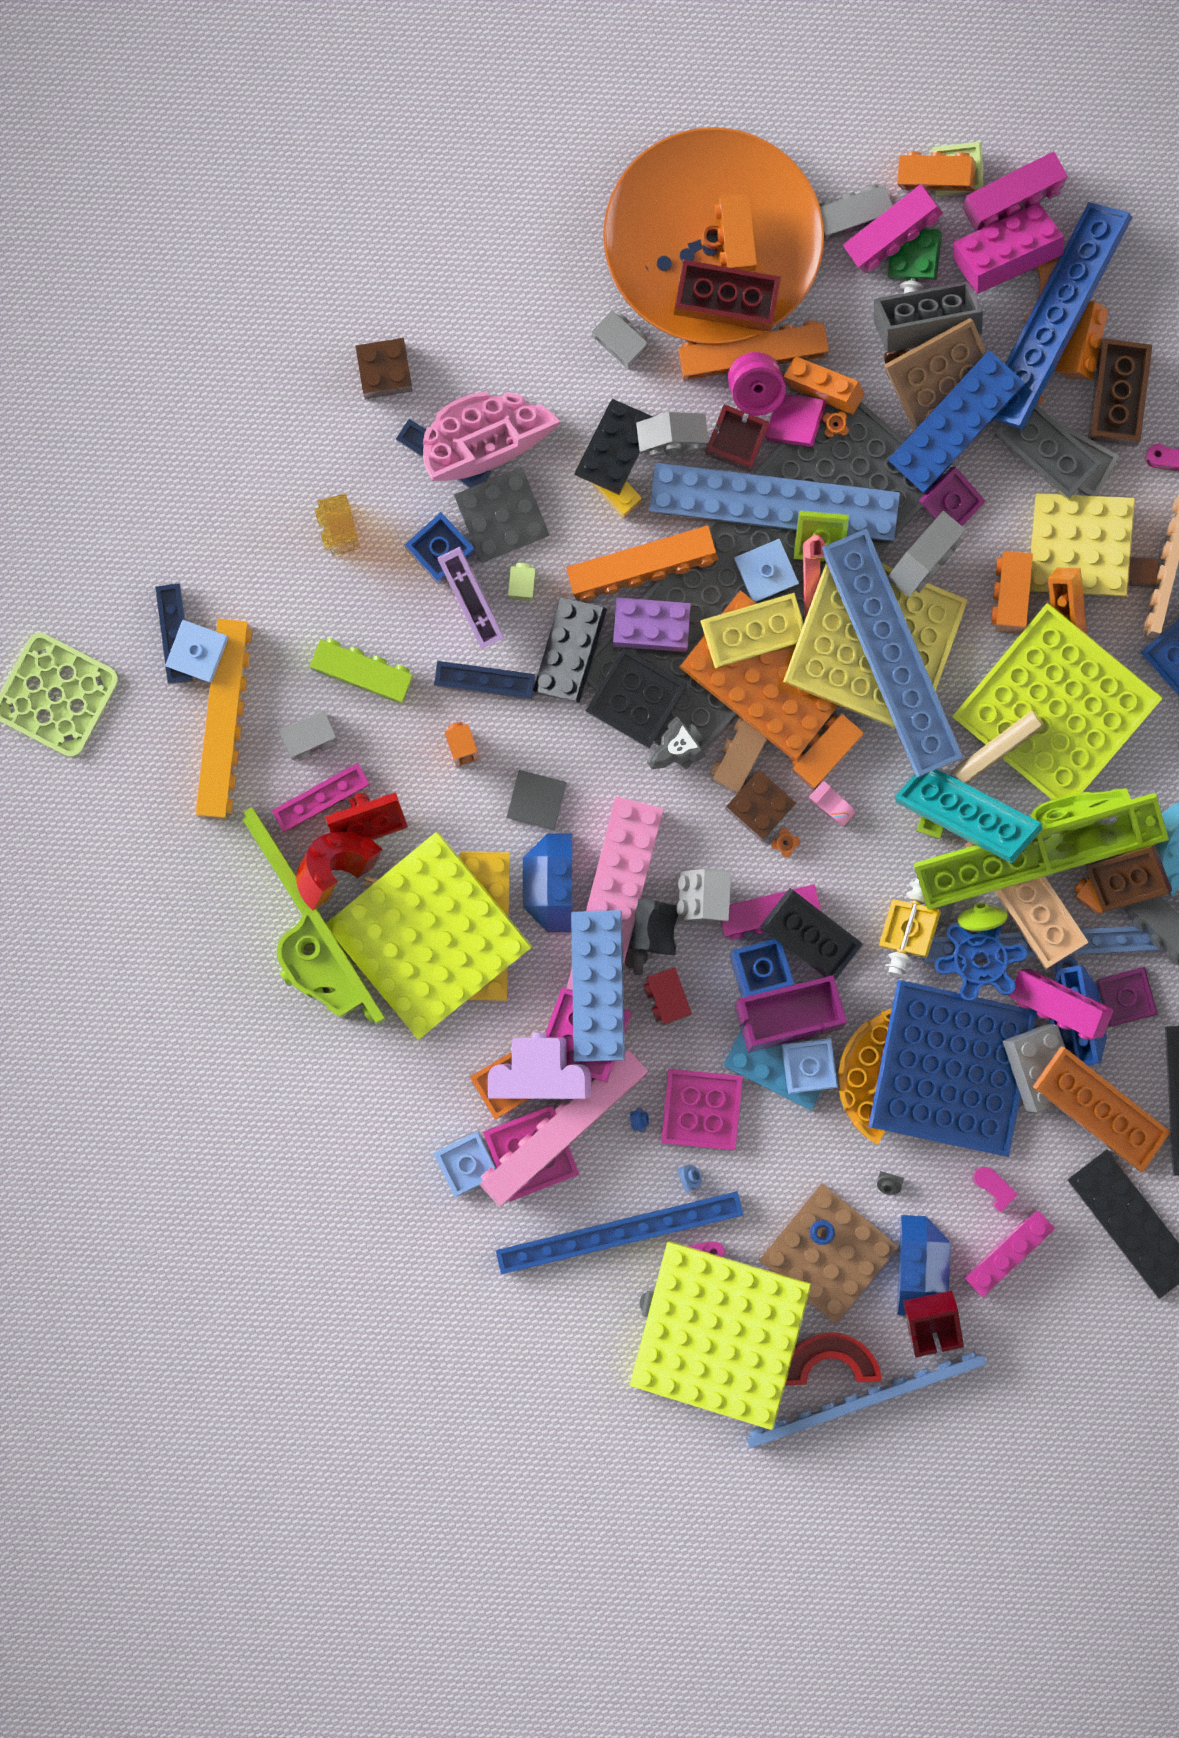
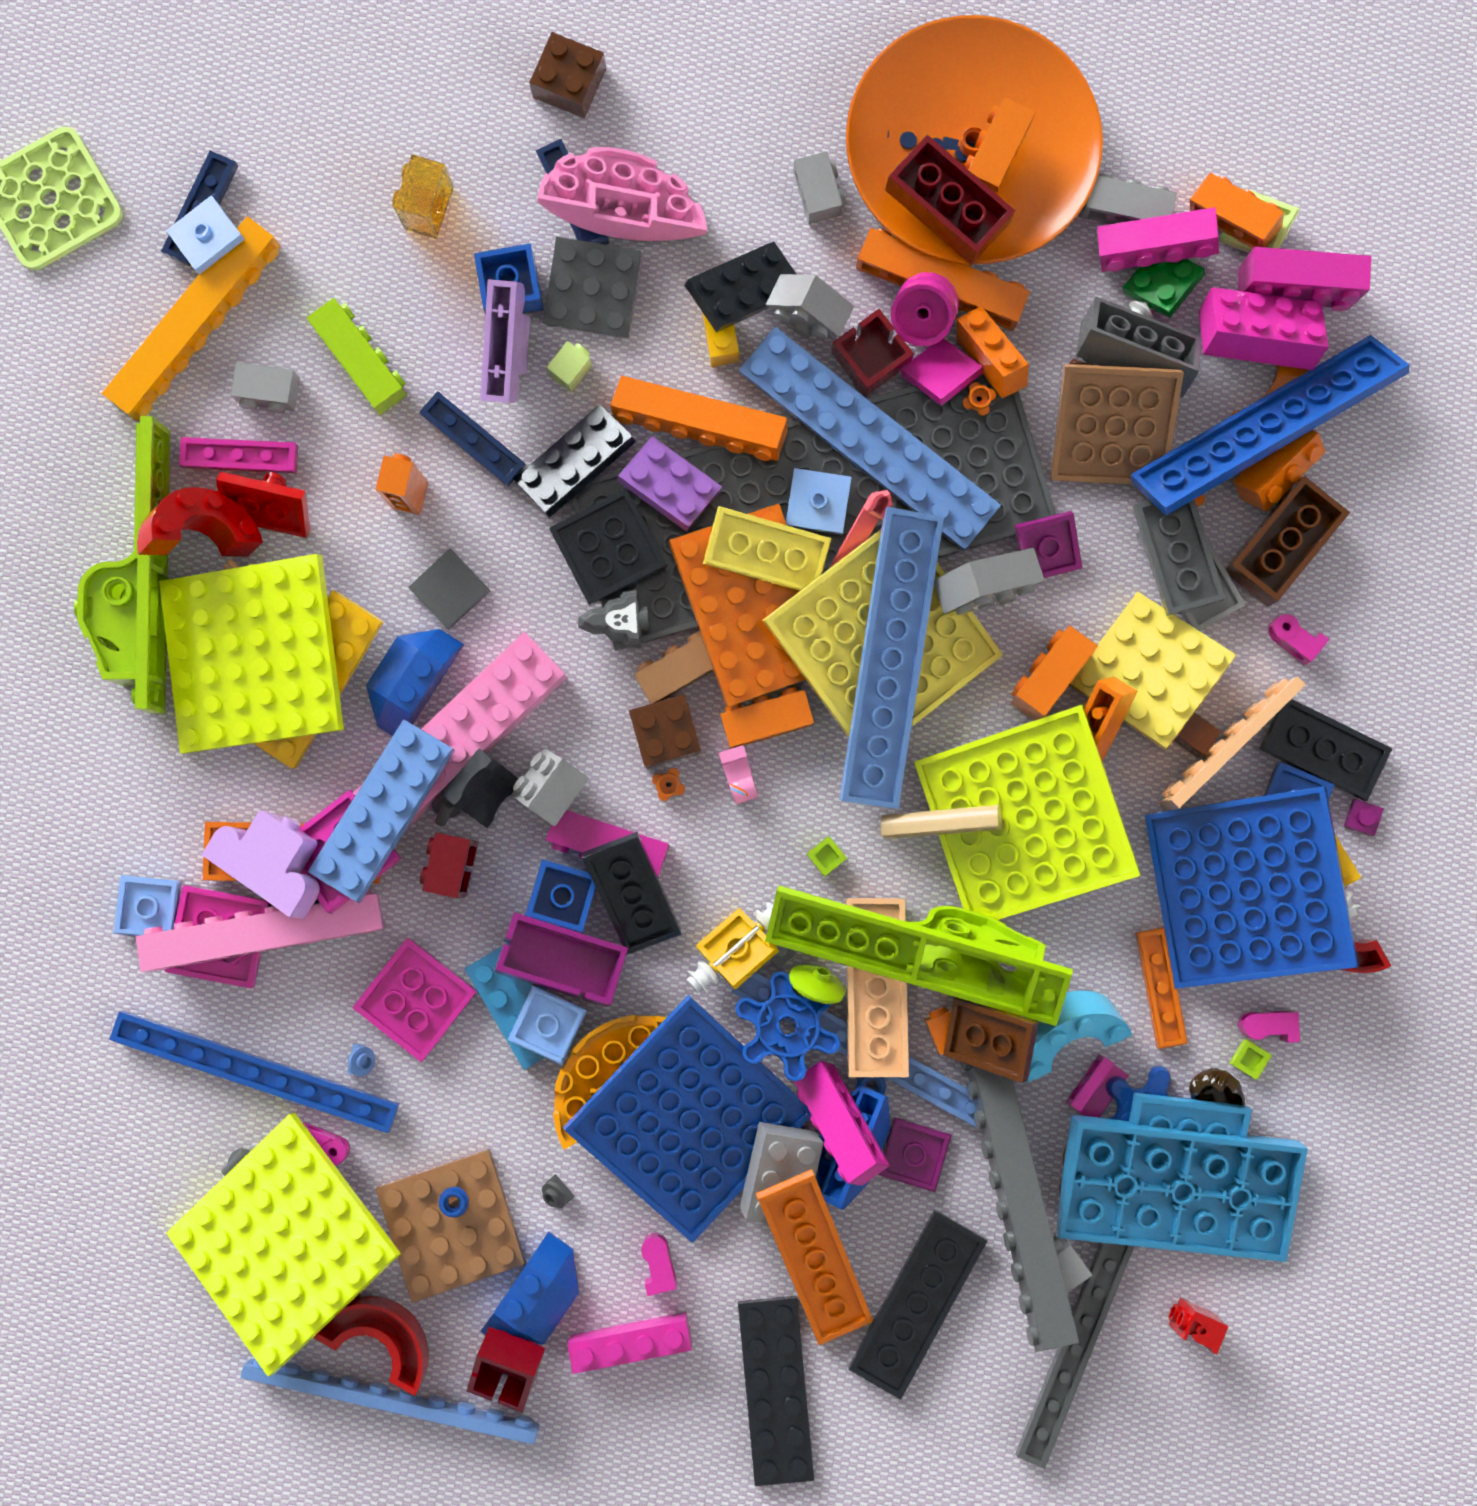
camera: 35 degrees right, 0 degrees up
(639, 1120) = (346, 970): blue plate -> none
(826, 525) = (904, 489): lime plate -> none
(957, 421) = (1103, 468): blue plate -> none
(969, 813) = (868, 872): teal plate -> none

